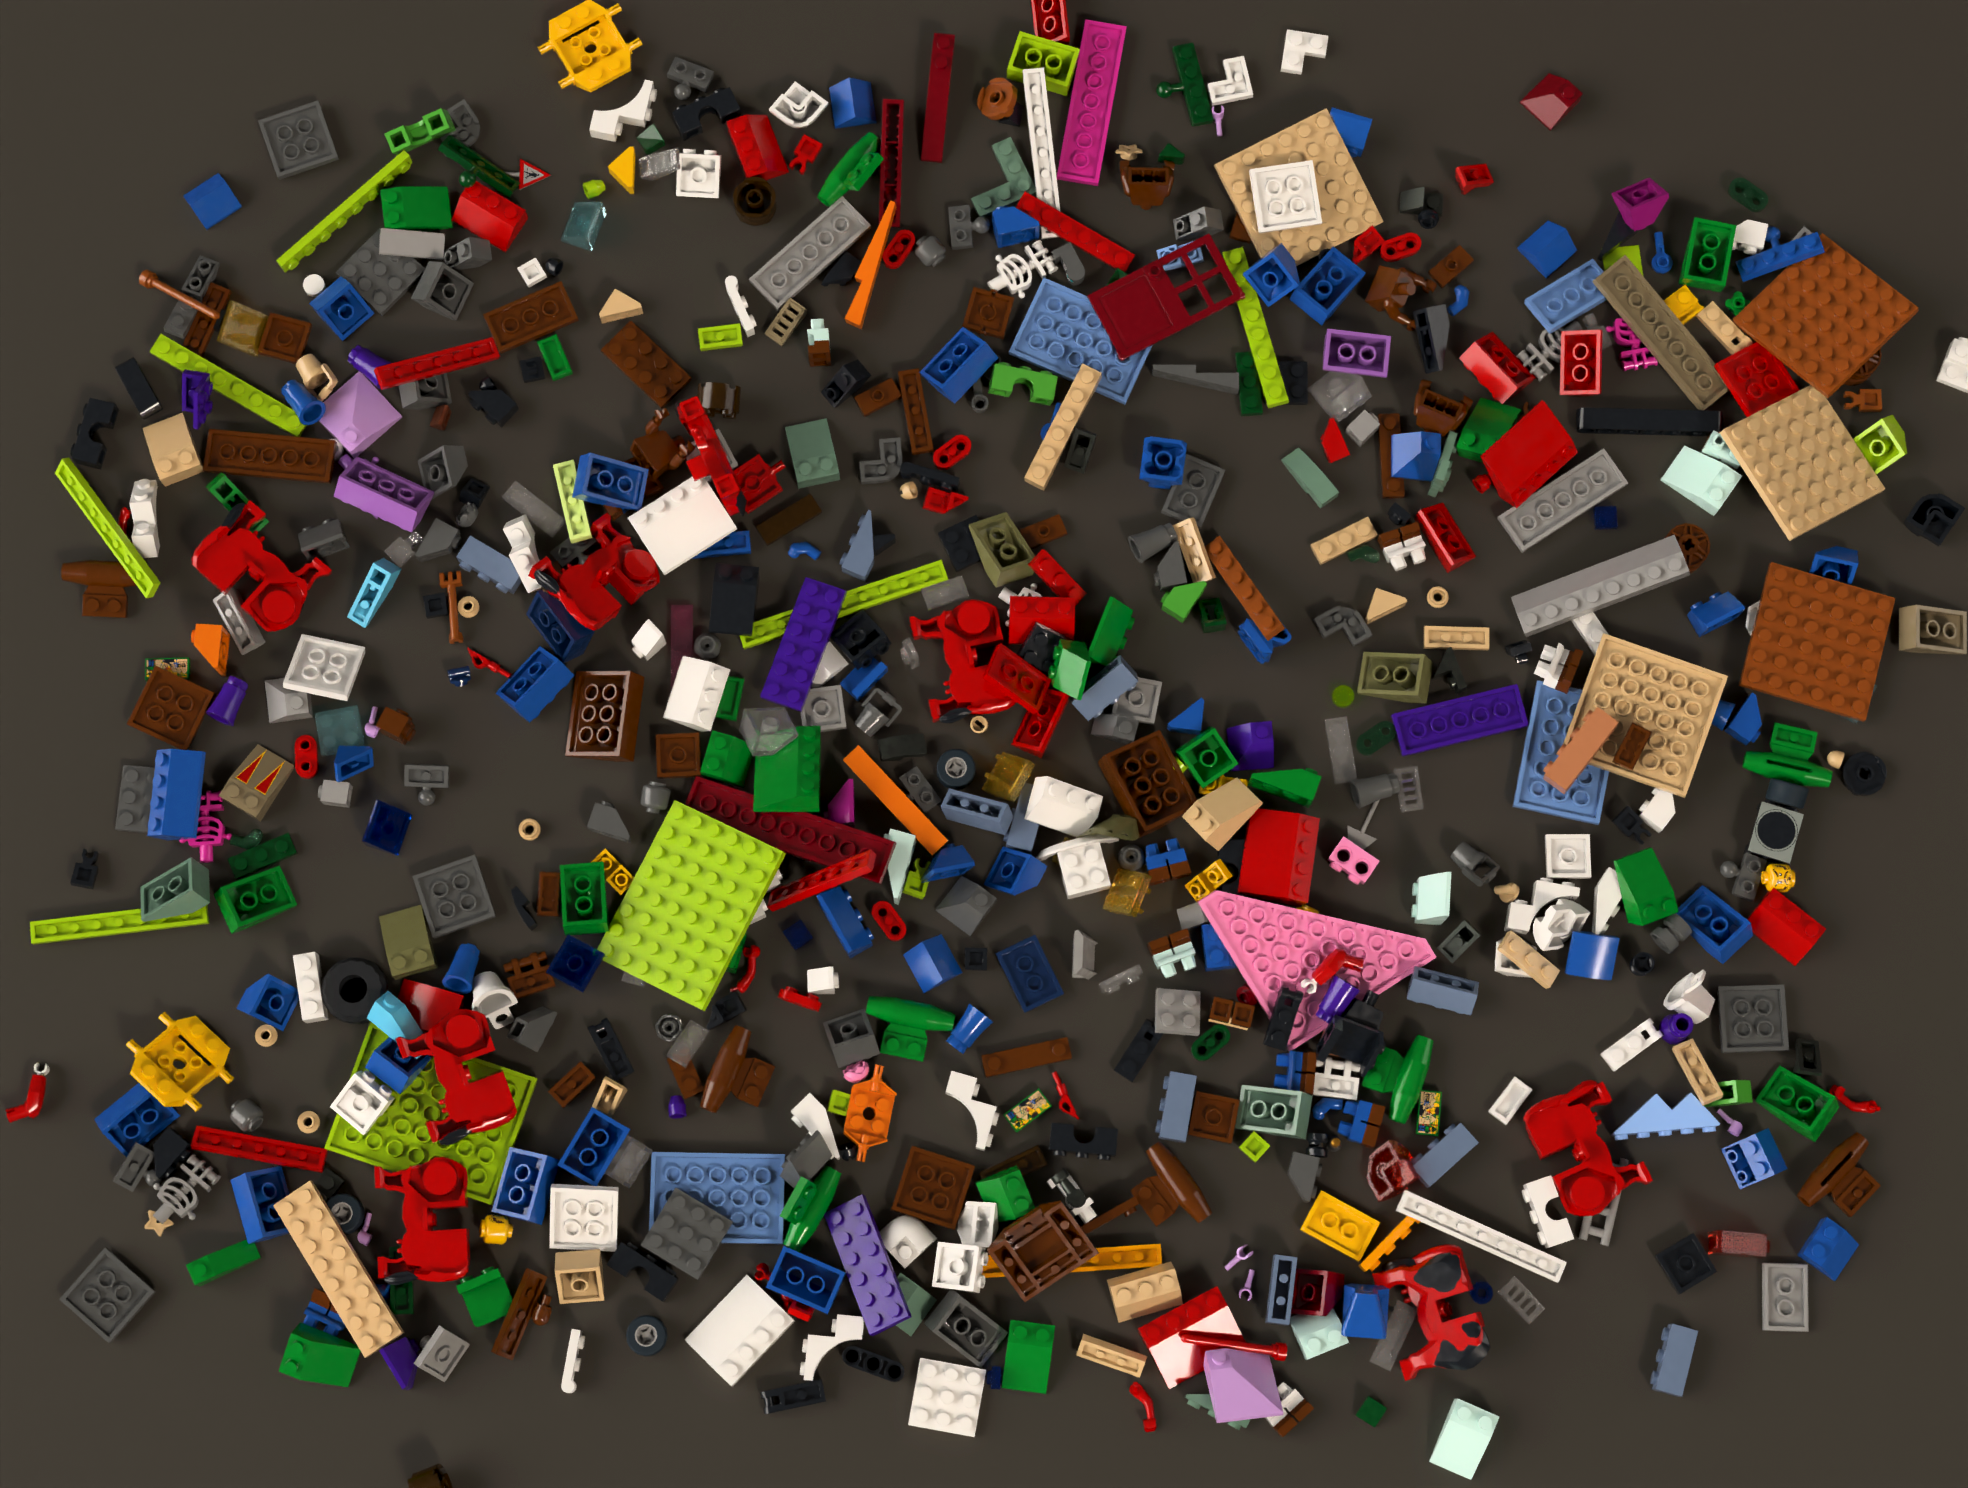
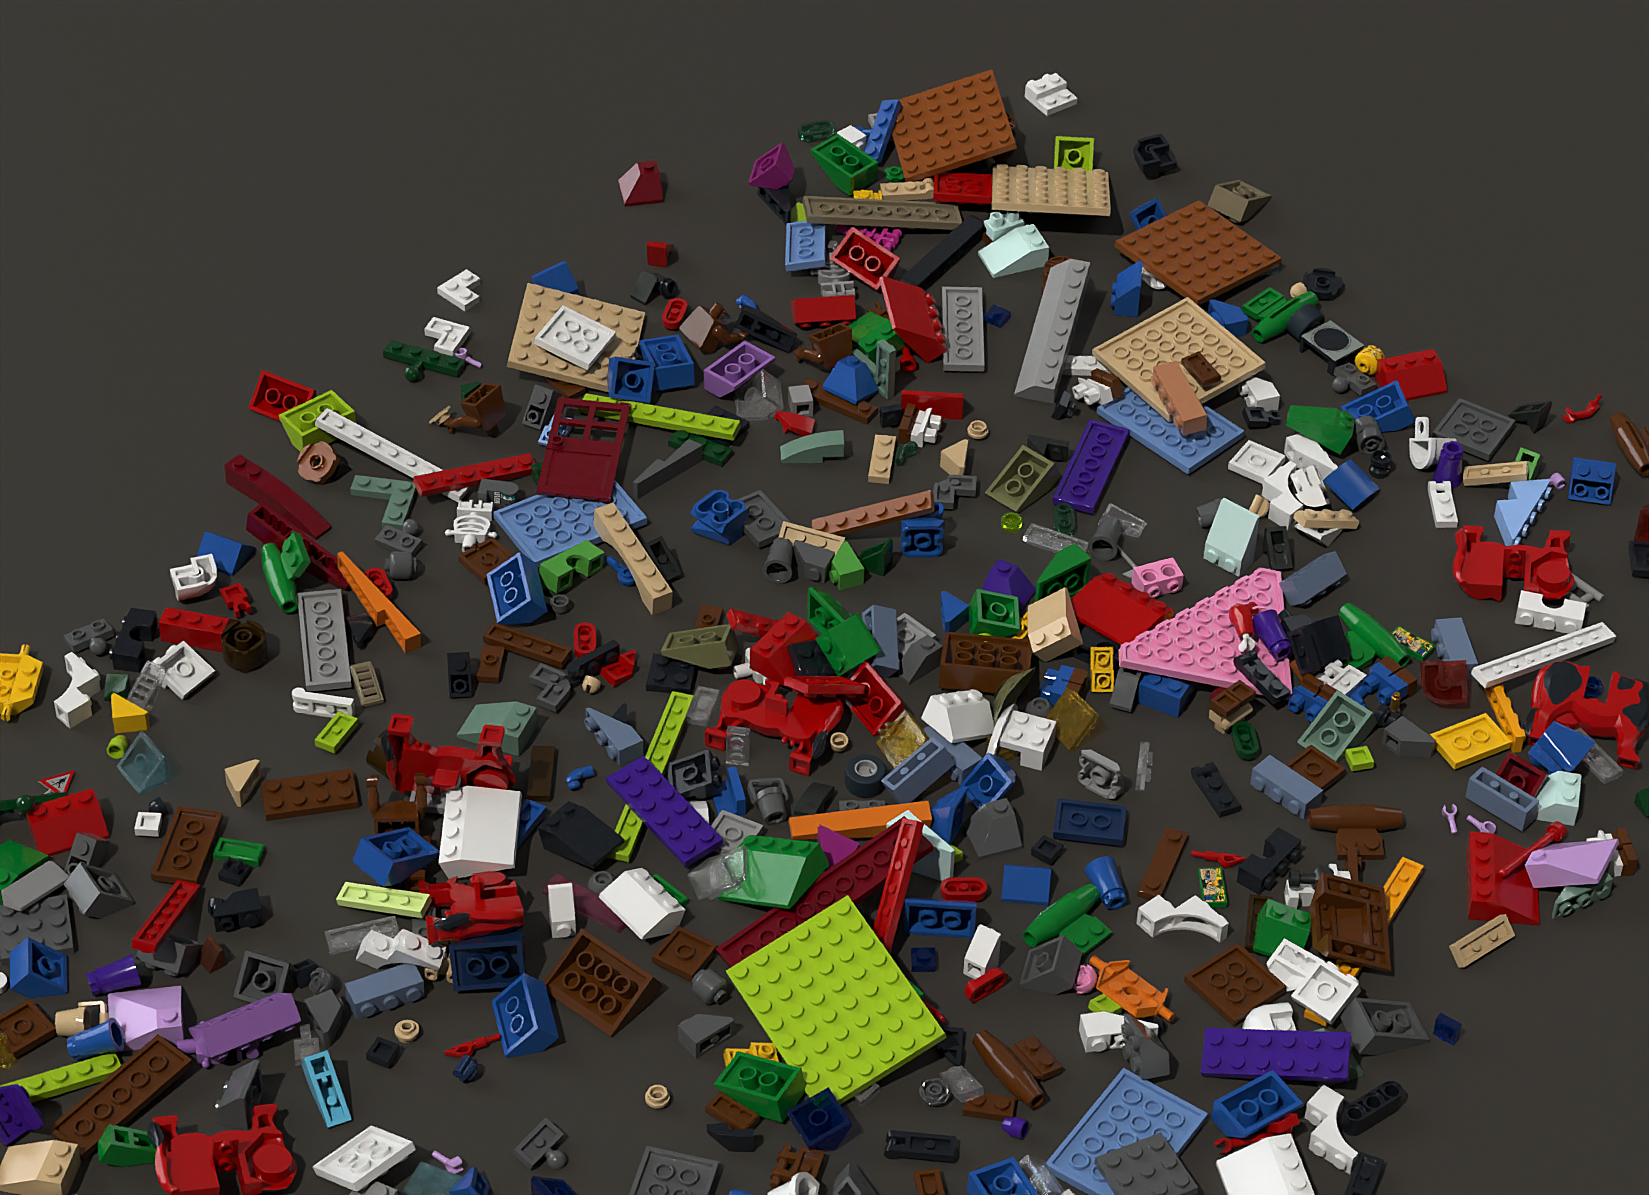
camera: 55 degrees left, 35 degrees down
(396, 725) = (471, 1133): reddish brown brick -> none
(451, 584) = (372, 1030): dark orange hinge -> none
(609, 1096) = (960, 1161): tan slope -> none
(726, 759) = (714, 919): green slope -> none
(808, 1205) = (1190, 1074): green plate -> none
(819, 344) = (410, 666): hips -> none
(947, 1397) = (1440, 1076): white plate -> none
(1013, 226) = (434, 502): blue slope -> none
(1028, 1356) = (1437, 989): green slope -> none
(1091, 102) = (380, 415): dark pink plate -> none
(1139, 1393) = (1531, 943): red piece -> none
(1145, 1291) = (1440, 885): tan slope -> none
(1164, 957) = (1143, 722): light aqua hips -> none
(1177, 1012) = (1201, 745): light grey plate -> none
(1366, 244) = (652, 328): red slope -> none
(1450, 266) = (716, 293): reddish brown plate -> none
(1456, 637) = (1012, 442): tan plate -> none
(1503, 1292) = (1605, 665): clear slope -> none
(1510, 1100) = (1436, 593): white tile -> none
(1548, 248) = (753, 242): blue slope -> none
(1661, 261) = (822, 192): blue plate -> none
(1798, 1103) = (1564, 435): green slope -> none
(1867, 400) = (1030, 148): dark orange plate -> none

